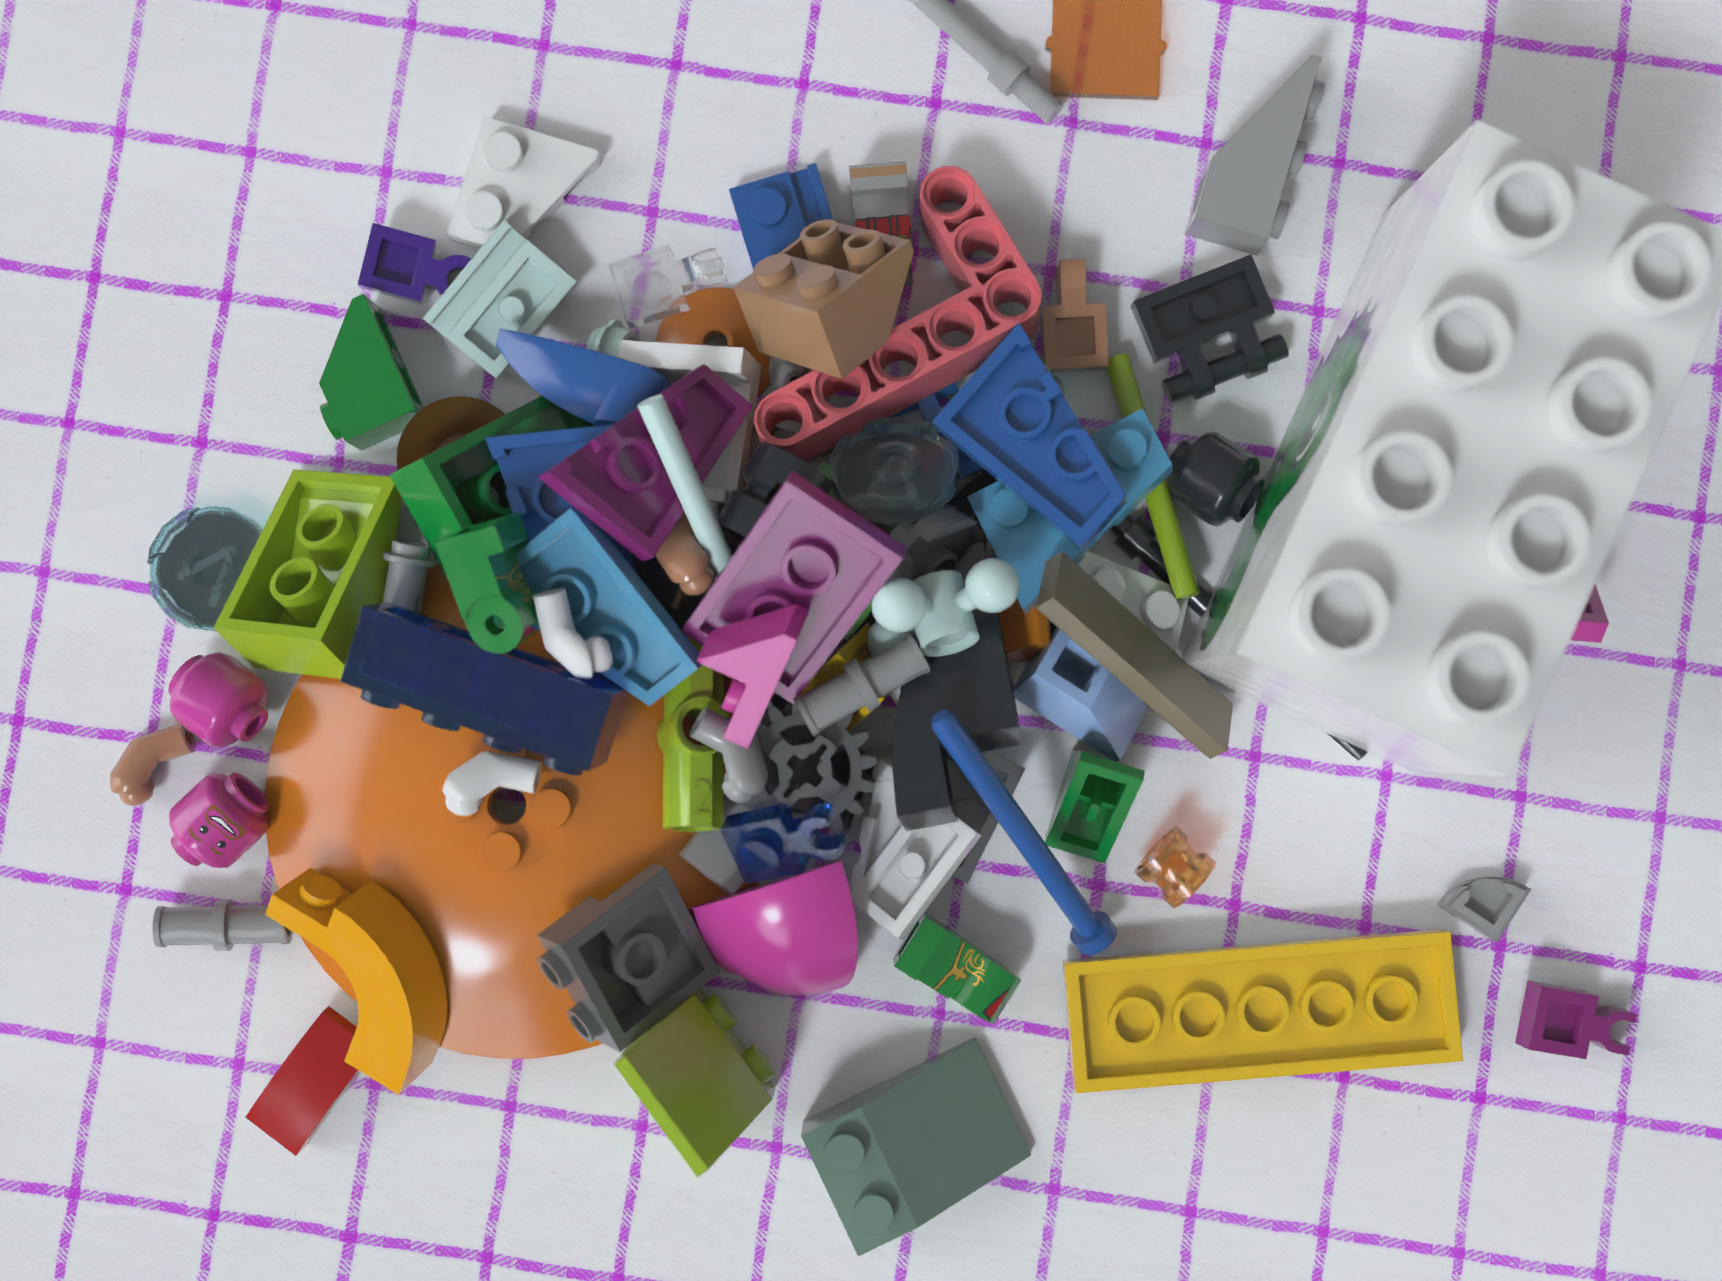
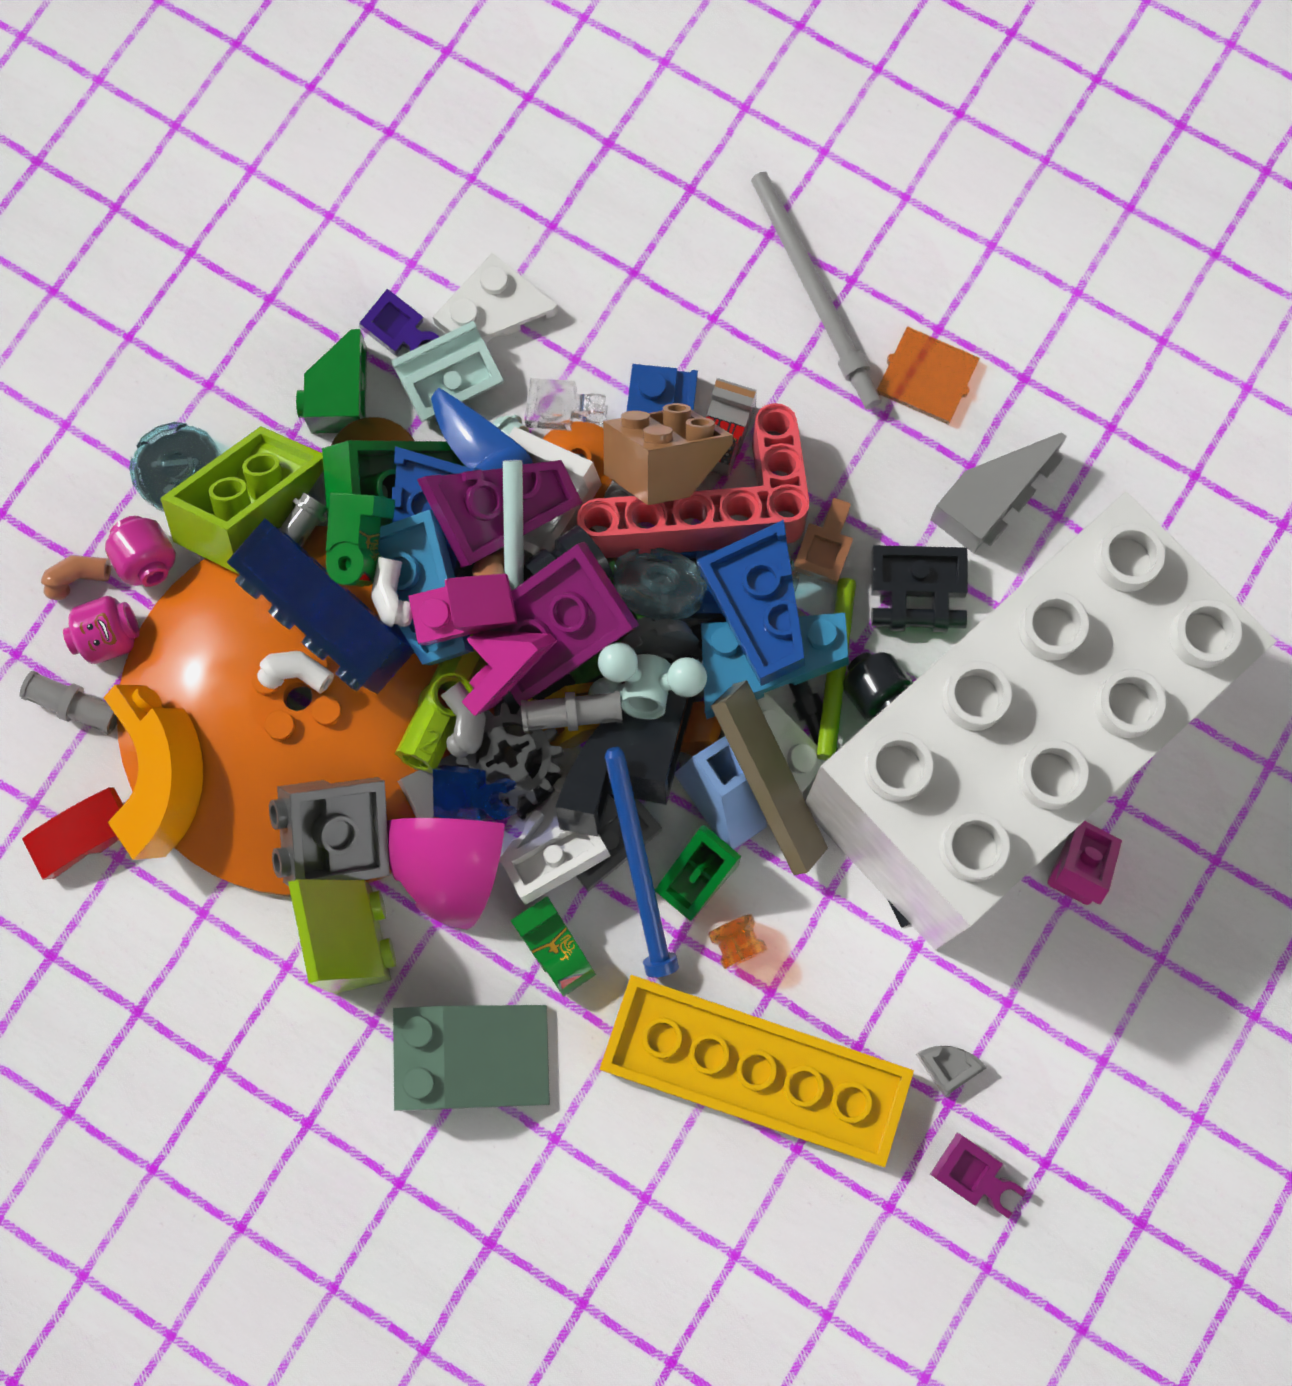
camera: 20 degrees right, 10 degrees down
(672, 620) = (462, 608): none -> dark pink slope

